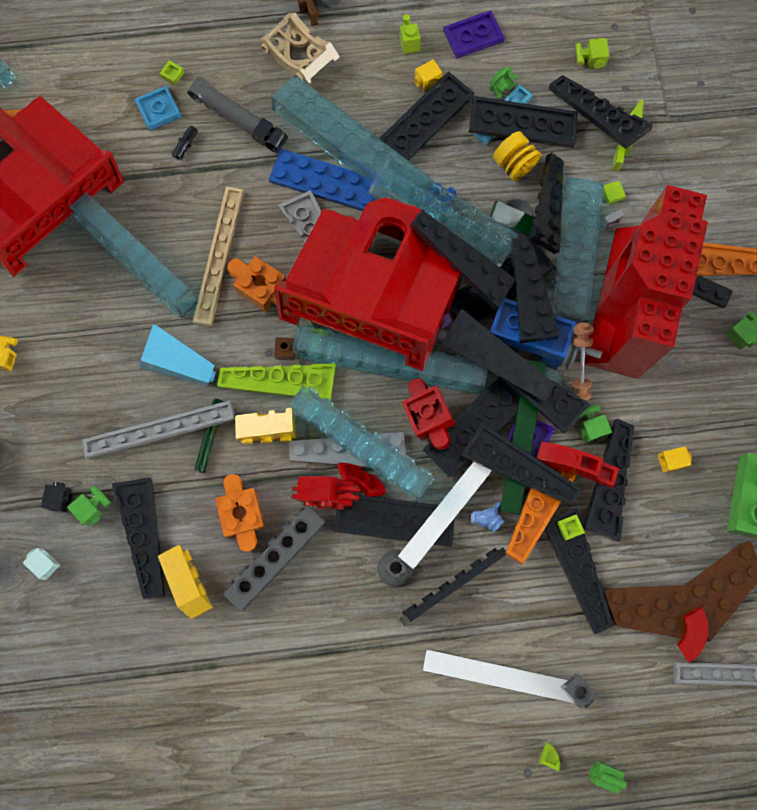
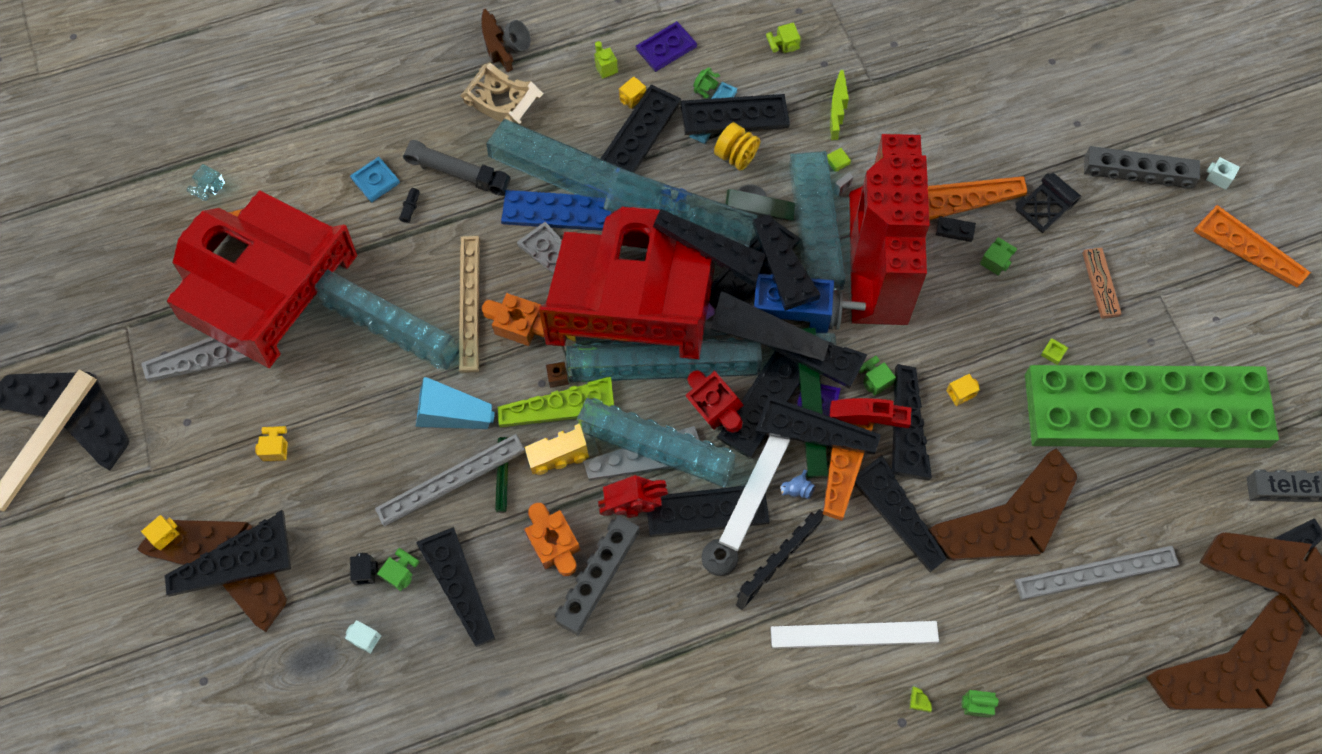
camera: 10 degrees left, 10 degrees down
(172, 72) = (380, 143): lime tile -> none
(184, 582) = (513, 618): yellow wedge -> none
(368, 483) = (674, 481): red tile -> none
(547, 225) = (782, 199): black wing -> none
(570, 527) = (880, 475): lime tile -> none
(570, 687) = (920, 627): dark grey brick -> none
(582, 340) = (844, 294): nougat axle -> none
(610, 119) = (818, 94): black wing -> none
(695, 634) = (1027, 547): red tile -> none

